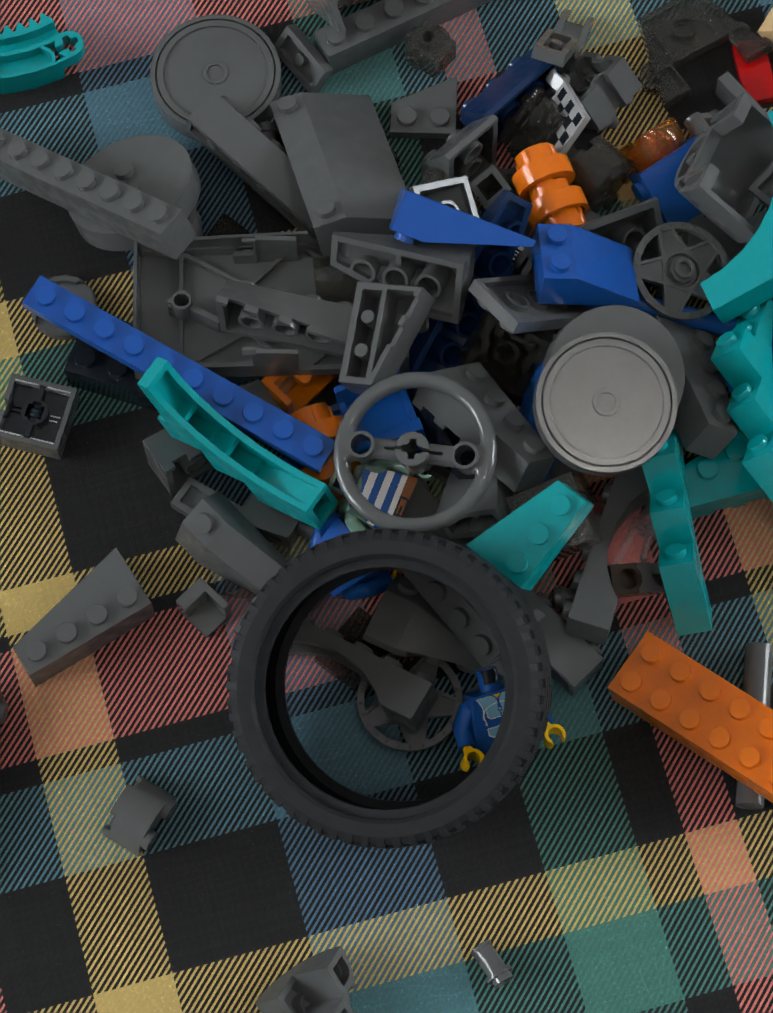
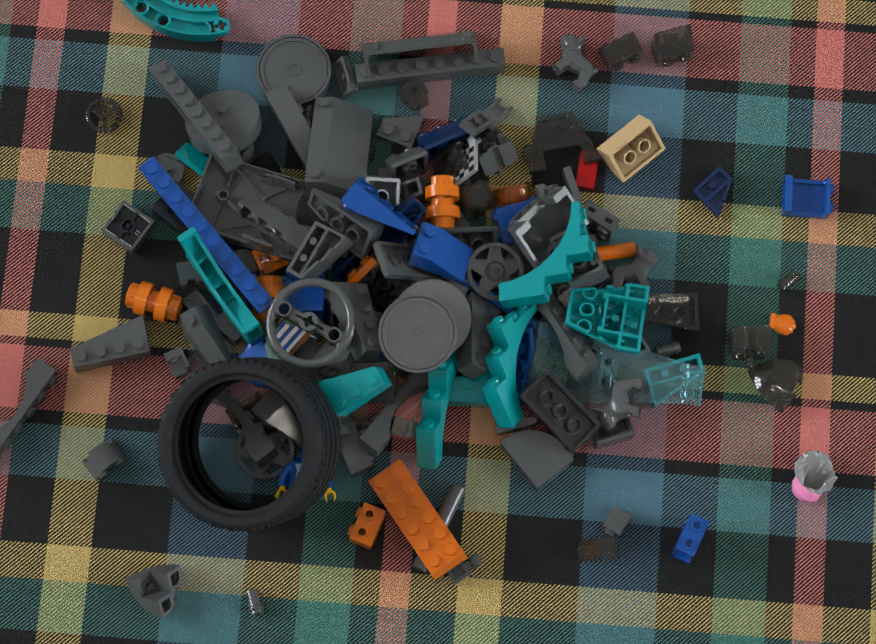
camera: 15 degrees right, 5 degrees up
(103, 270) = (192, 157): none -> teal tile
(143, 519) = (162, 303): none -> orange piece
(464, 336) = (356, 275): none -> orange plate
(633, 764) = (367, 525): none -> orange brick

